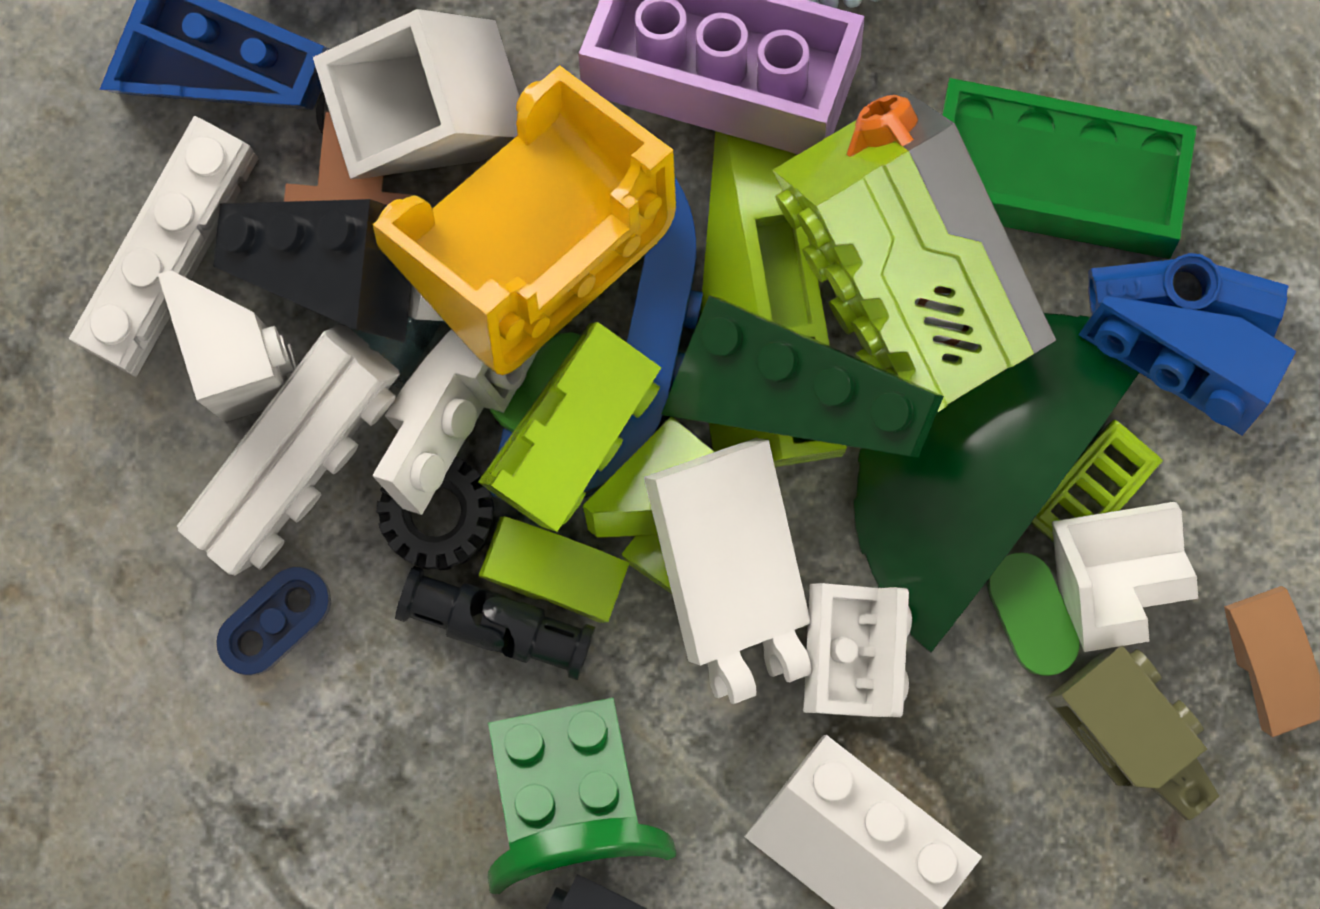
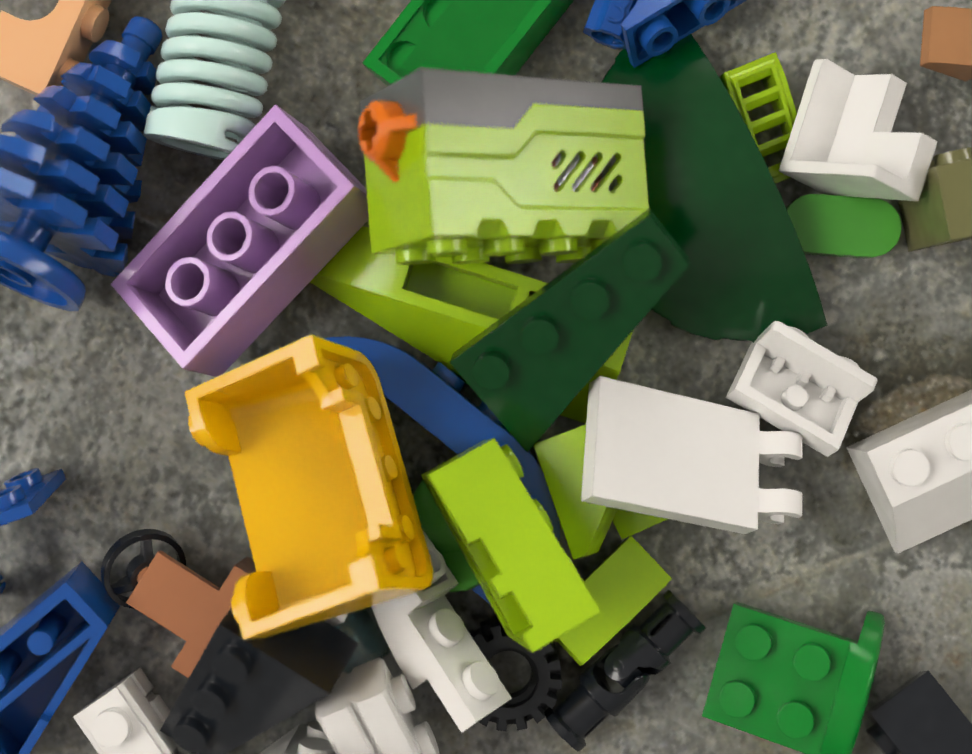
camera: 65 degrees left, 5 degrees up
(420, 94) = (147, 520): white slope -> none

